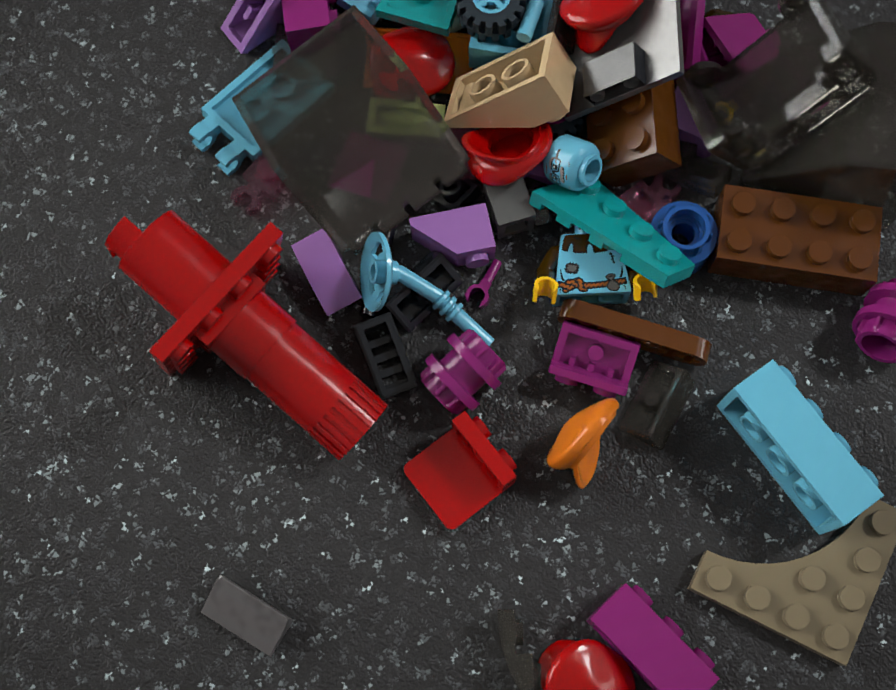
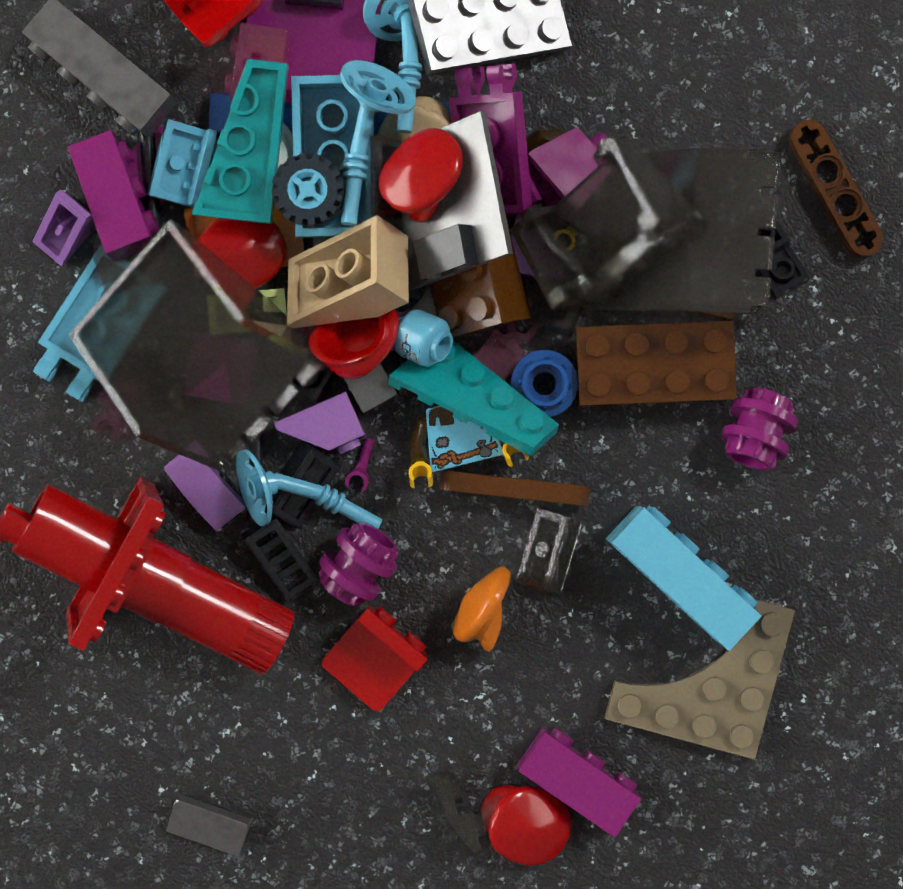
camera: 15 degrees left, 15 degrees up
(593, 359) = (480, 524): magenta bracket -> none

